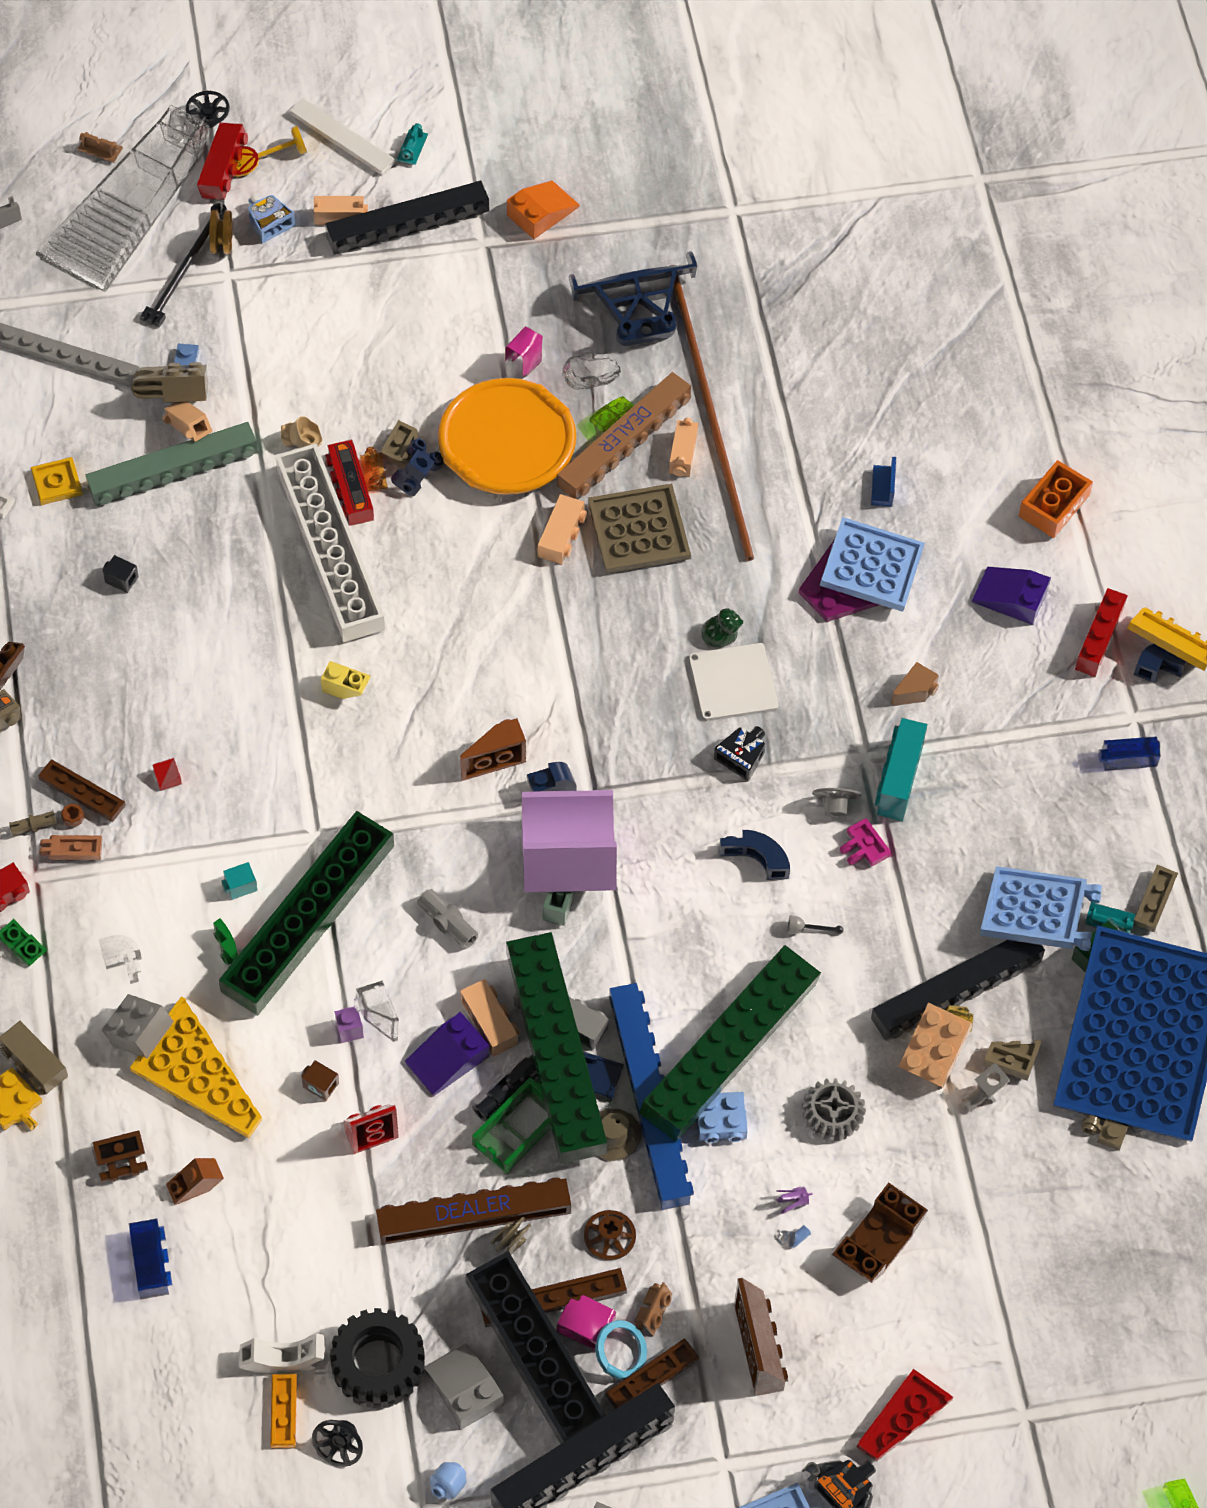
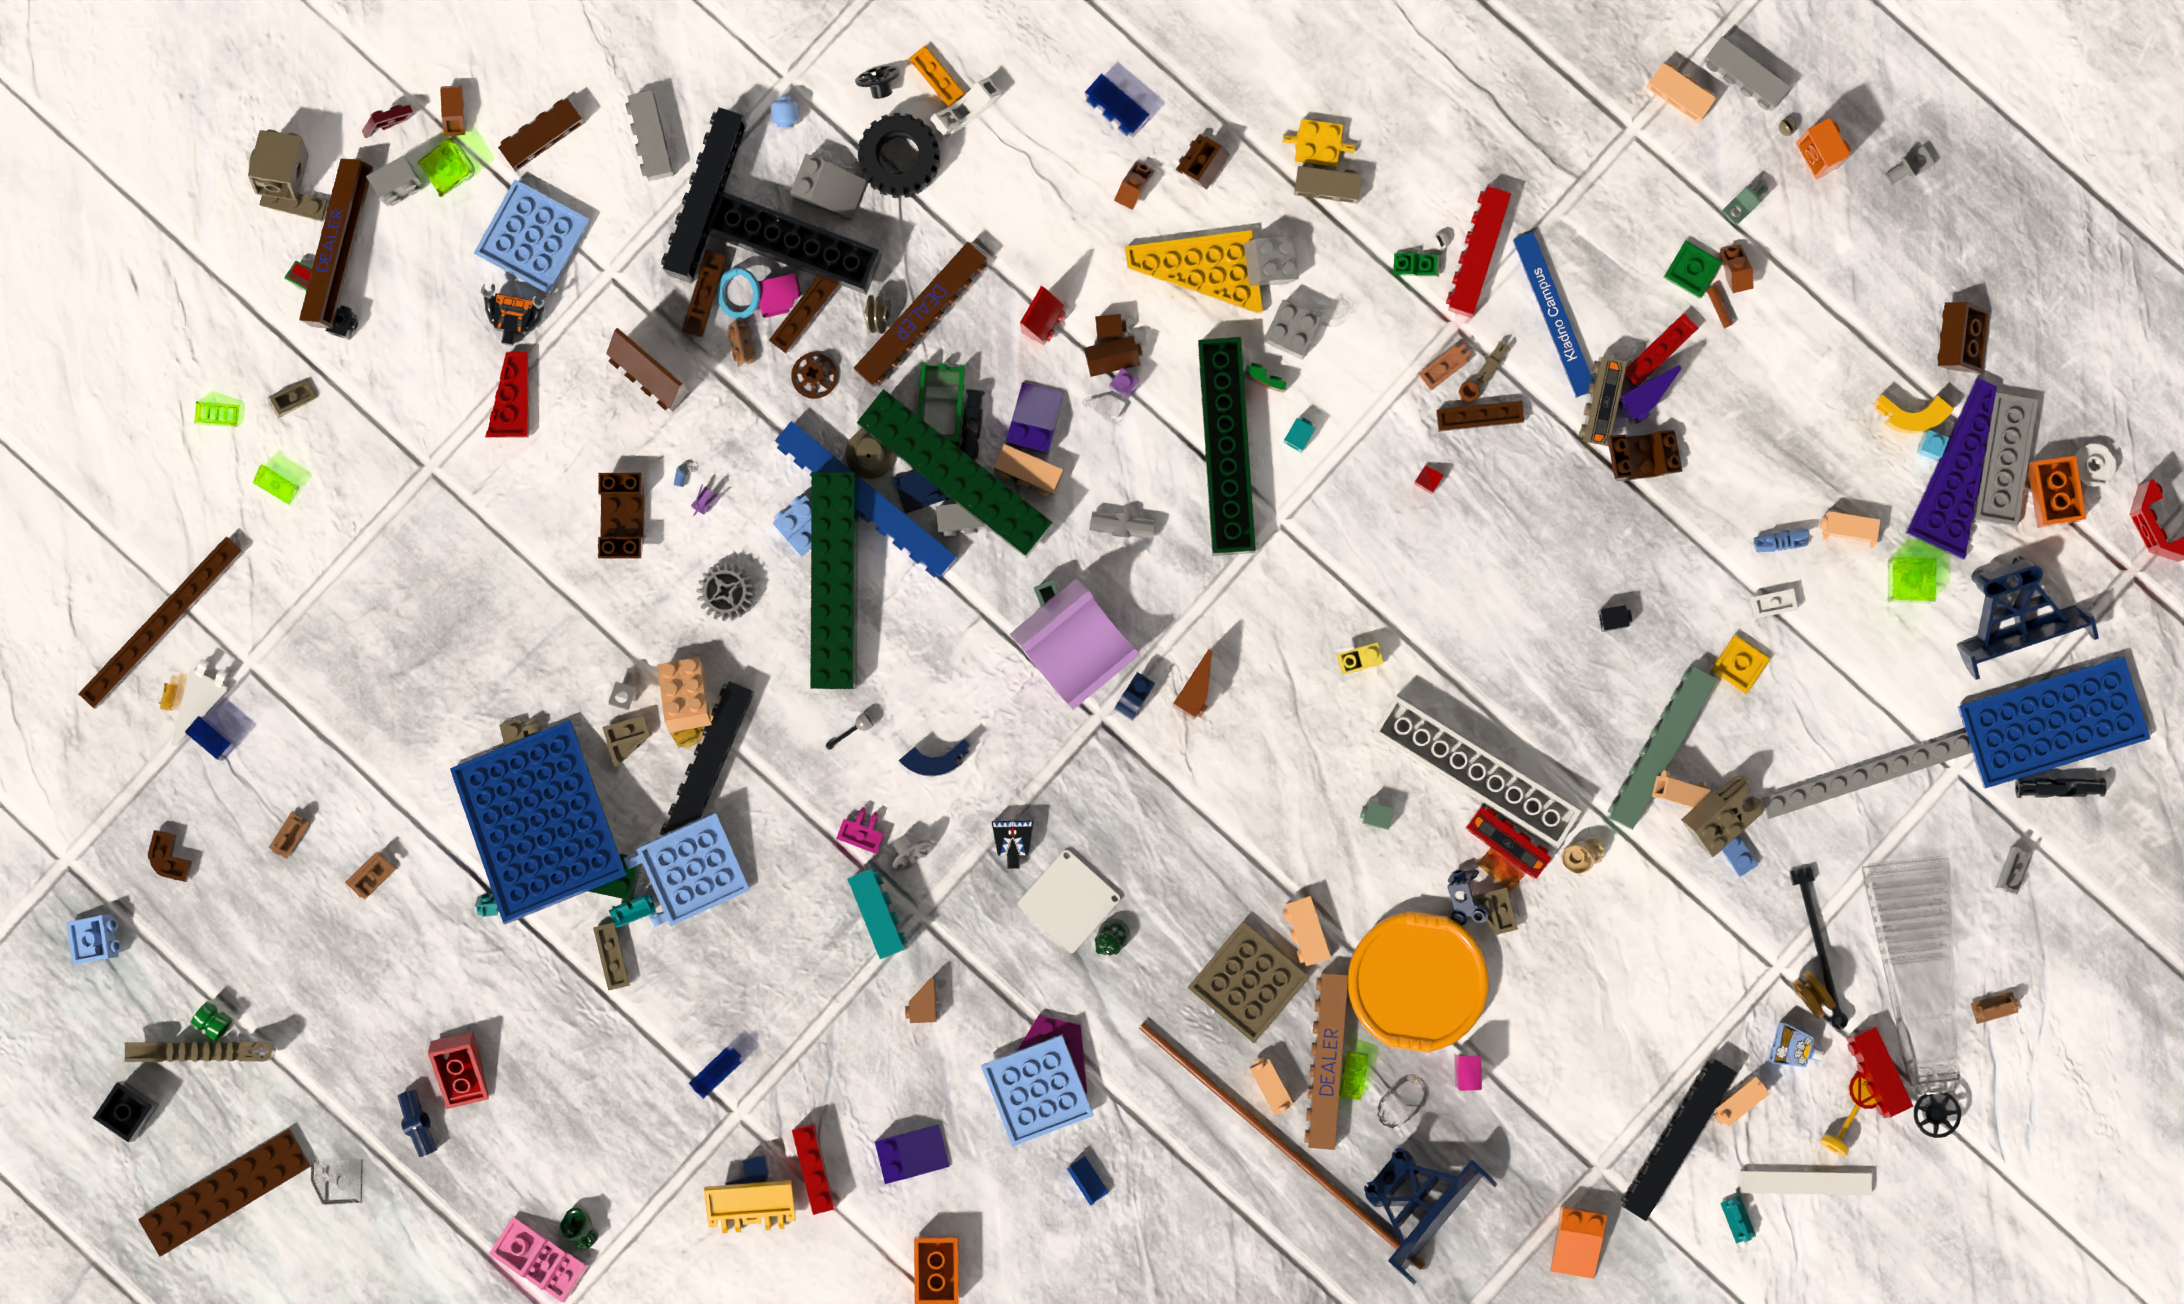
camera: 150 degrees right, 25 degrees up
(170, 963) = (1292, 329): none -> light grey brick
(338, 1052) = (1112, 356): none -> reddish brown brick
(433, 568) = (1377, 815): none -> sand green brick

